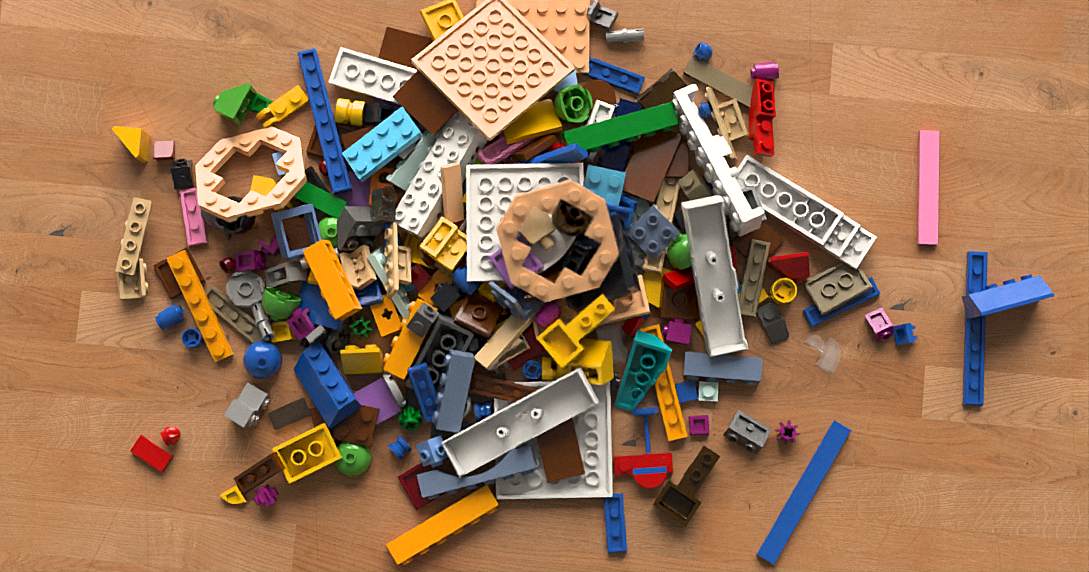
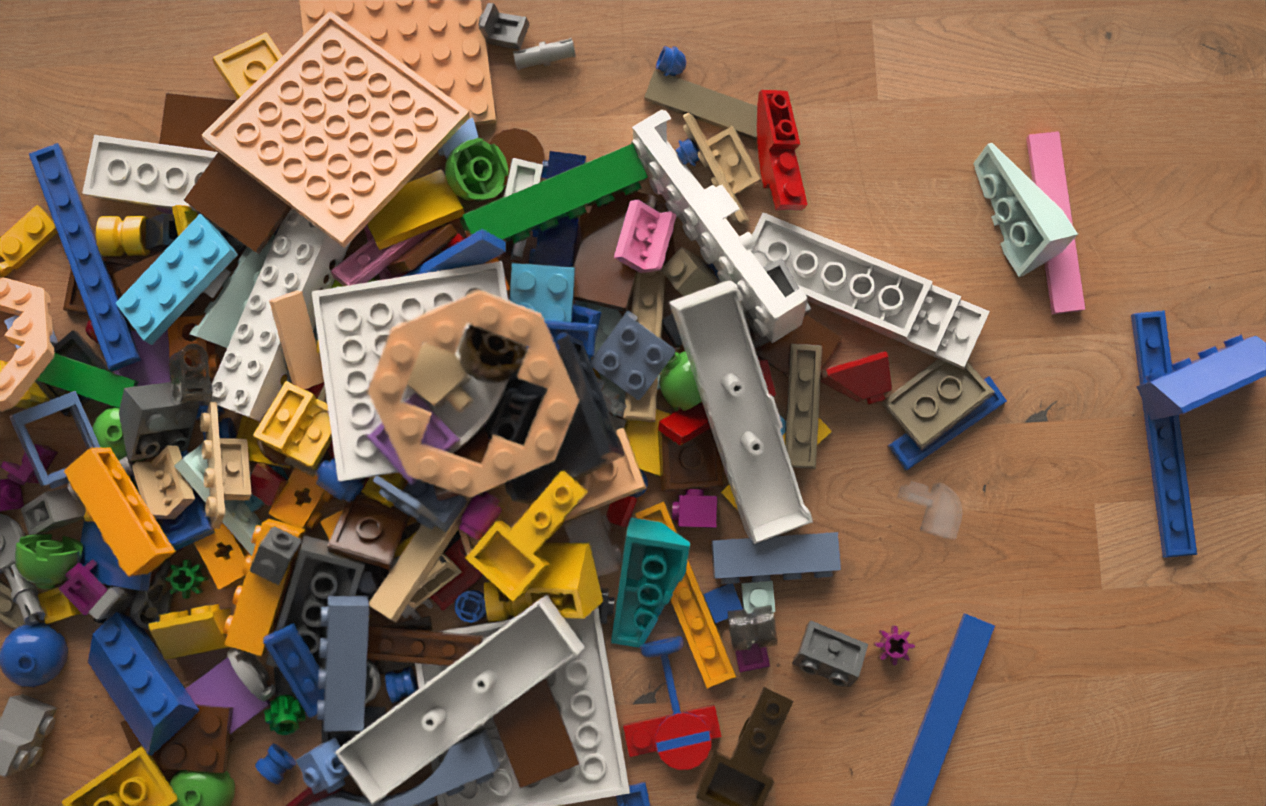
camera: 15 degrees left, 0 degrees up
(289, 413) = (89, 735): clear smoke tile -> none
(390, 107) = (183, 217): none -> yellow tile
(446, 296) = (311, 509): black brick -> none
(615, 76) = (538, 119): blue tile -> none
(662, 90) = (614, 130): dark brown piece -> none
(671, 160) = (644, 237): none -> bright pink bracket
(701, 408) = (752, 628): none -> clear smoke wheel
(765, 71) = (772, 77): magenta brick -> none
(773, 323) = (844, 472): dark grey slope -> none
(783, 291) = (853, 420): yellow wheel -> none
(879, 324) = (1014, 450): bracket -> none
(904, 334) = (1054, 459): blue tile -> none
(911, 184) = (1029, 220): none -> light aqua wedge

